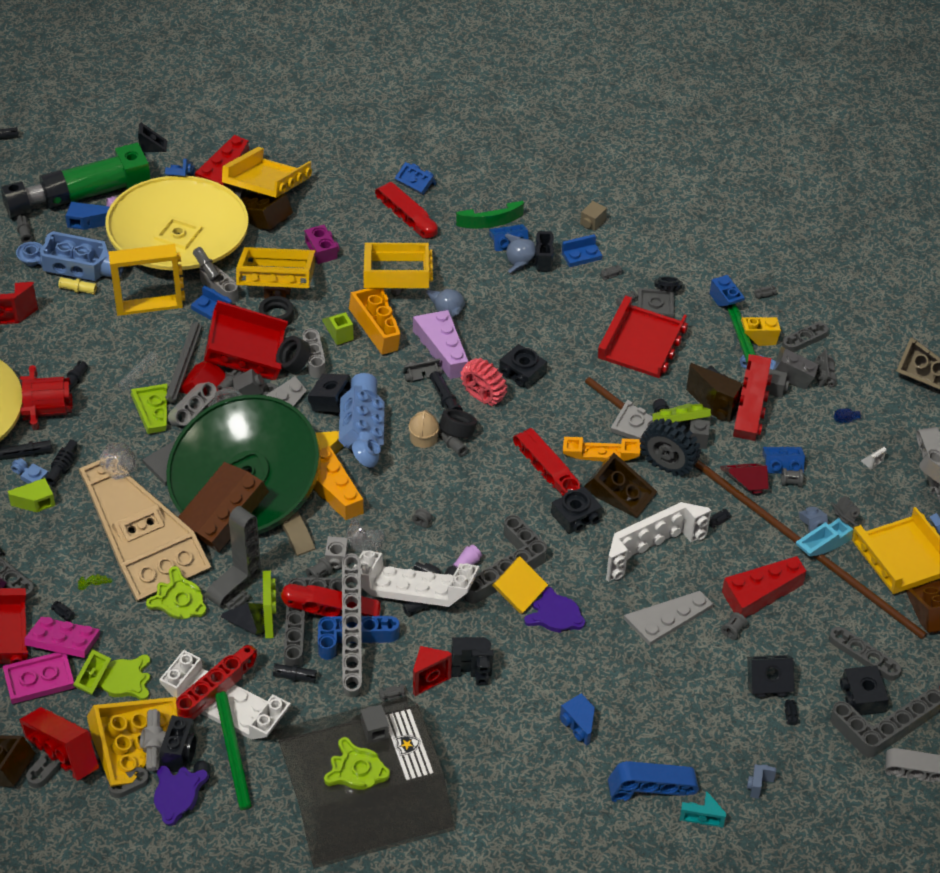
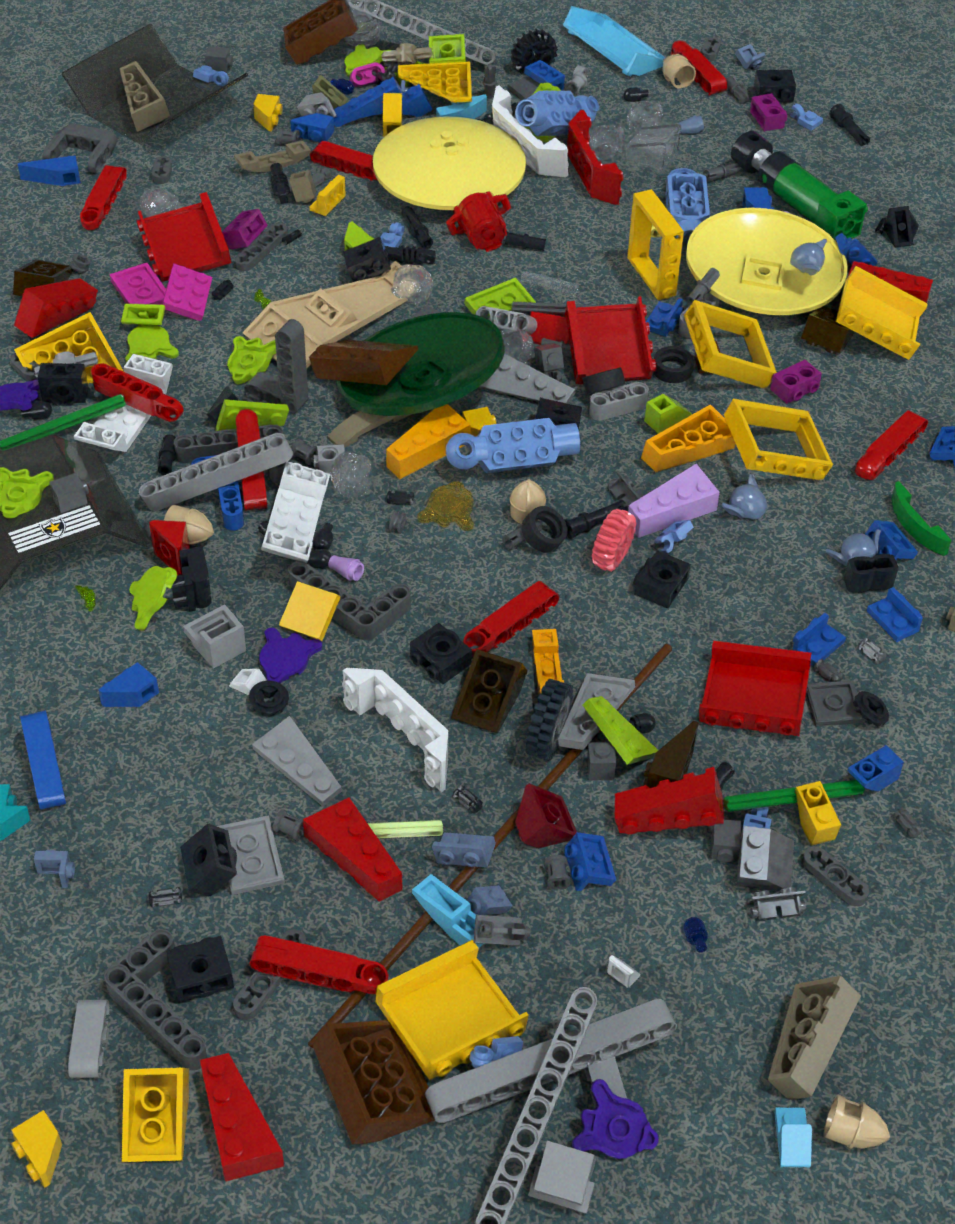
camera: 80 degrees right, 0 degrees up
(79, 496) = (367, 260): none -> black brick
(193, 192) = (809, 257): none -> sand blue piece
(390, 514) = (400, 497): none -> black piece
(398, 661) = (198, 525): none -> tan helmet
(407, 483) = (449, 505): none -> clear yellow tile
(461, 746) = (88, 595): none -> clear neon green piece
(473, 349) = (675, 532): none -> medium blue plate
(481, 689) = (149, 593): none -> lime tile
(536, 649) = (217, 636): none -> light grey plate
(579, 641) = (247, 679): none -> white slope
(598, 297) = (818, 639): none -> blue bracket
(602, 620) = (268, 689): none -> black gear
(738, 650) = (257, 855): none -> light grey tile
(742, 553) = (407, 829): none -> yellowish green axle
(768, 524) = (464, 849): none -> sand blue bracket
(869, 617) = (317, 965): none -> red piece

